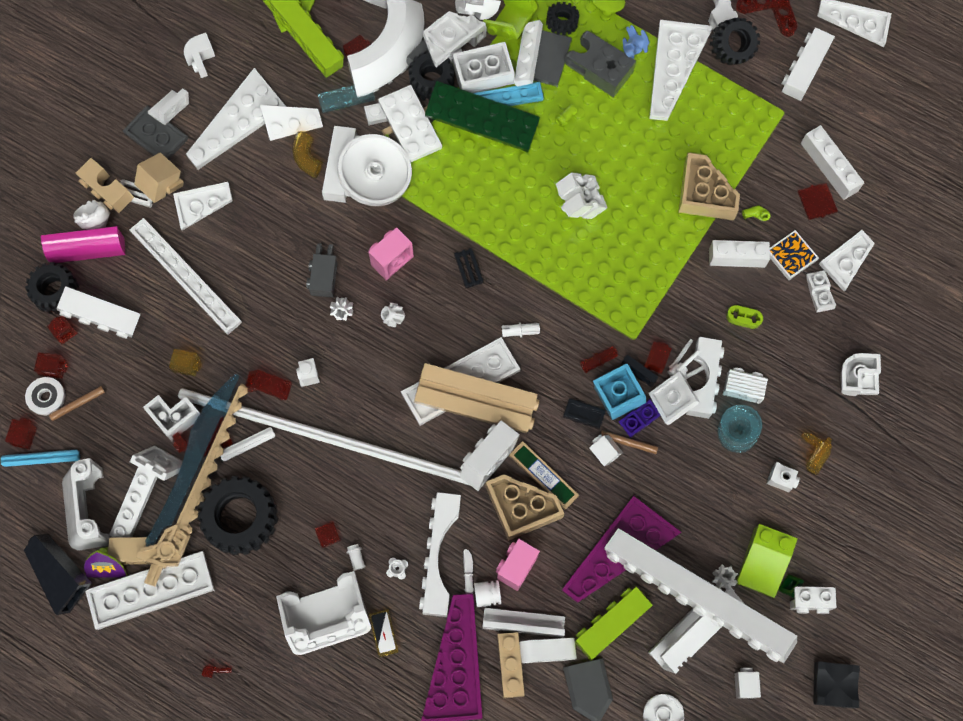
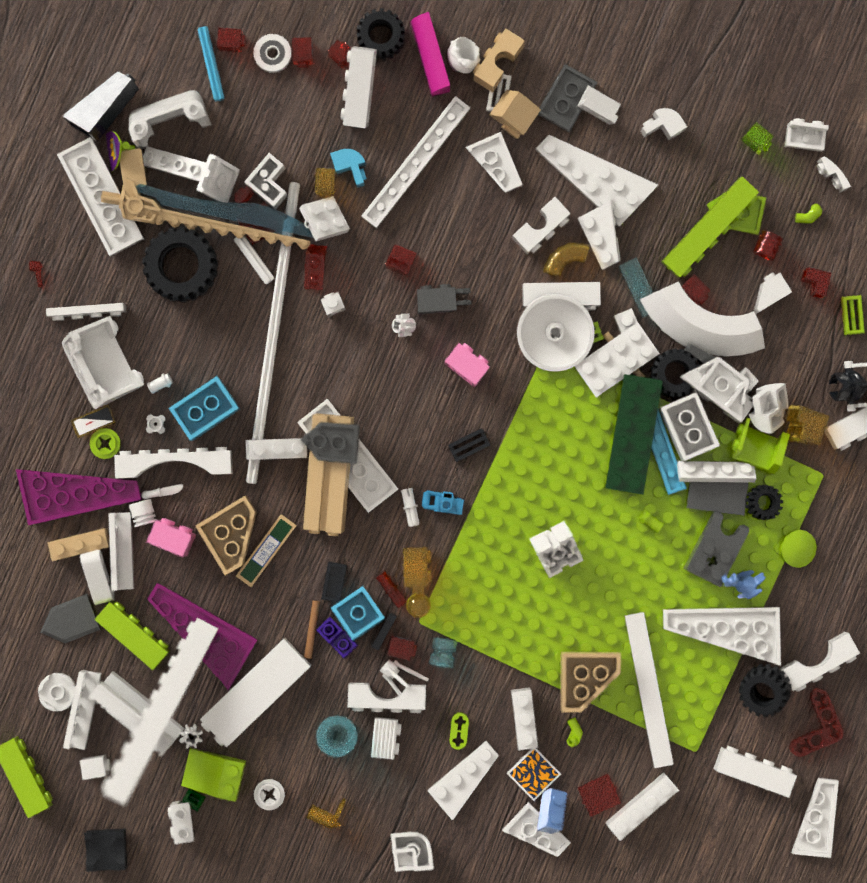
camera: 80 degrees right, 15 degrees up
(76, 403) = (269, 84): medium nougat bar -> none
(170, 333) = (349, 160): none -> medium azure brick
(221, 366) = (324, 218): none -> white plate
(263, 159) = (555, 216): none -> white arch
(265, 630) = (77, 312): none -> white plate
(278, 303) = (401, 260): none -> clear red piece
(327, 535) = (177, 352): clear red plate -> none
(390, 512) = (204, 408): none -> medium azure brick
(392, 314) = (405, 377): white gear -> none
(399, 622) = (95, 443): none -> lime gear
(442, 446) = (275, 449): none -> white brick
(445, 382) = (334, 442): none -> dark grey tile
(488, 455) = (272, 494): white brick -> none
(521, 299) = (442, 503): none -> dark azure piece
(586, 328) = (417, 577): none -> clear yellow brick
(605, 449) = (298, 607): white brick -> none
(667, 318) = (443, 652): none -> clear light blue wheel
(673, 398) = (358, 668): white plate -> none
(685, 689) = (81, 710): none -> white fence
(687, 506) = (255, 693): none -> white brick
(723, 141) = (648, 690): none -> white tile
(776, 477) = (300, 777): white brick -> none
(793, 321) = (460, 782): none -> white wing
(800, 508) = (271, 803): none -> white gear
(820, 291) = (498, 805): white slope -> none
(831, 238) = (552, 811): none -> medium blue brick

